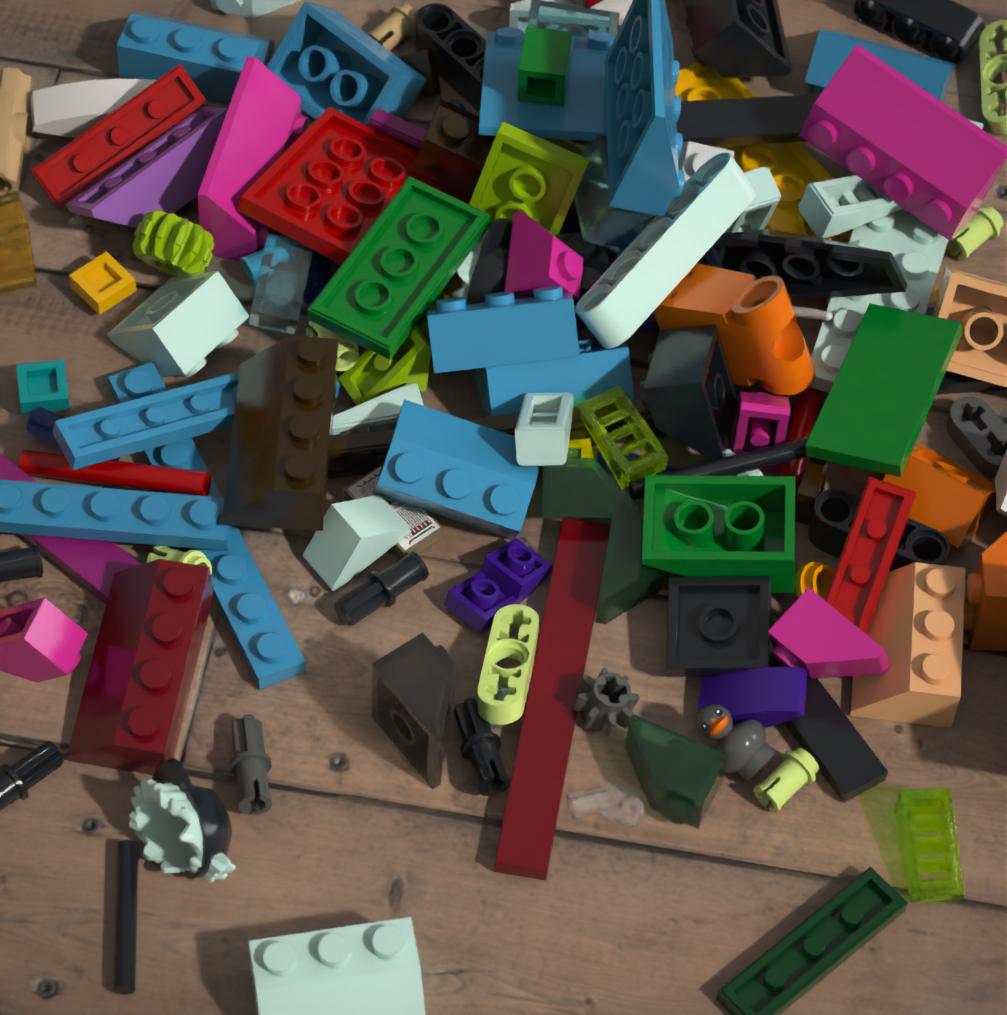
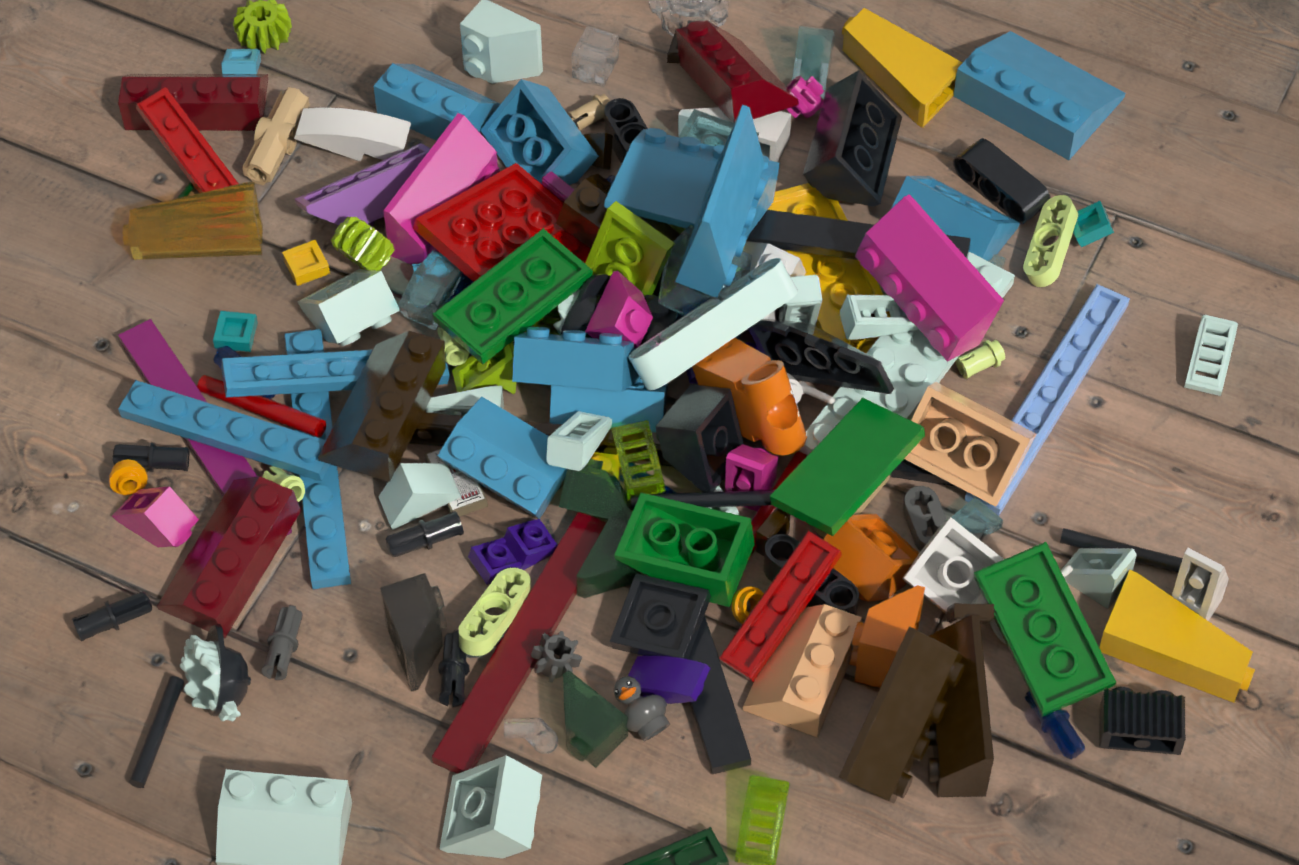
camera: 20 degrees right, 0 degrees up
(118, 136) = (353, 154): red tile -> none
(545, 66) = (665, 164): green brick -> none
(595, 911) = (492, 809): none -> light aqua slope
(794, 772) = (672, 746): yellowish green pin -> none
(824, 641) = (729, 648): dark pink slope -> none

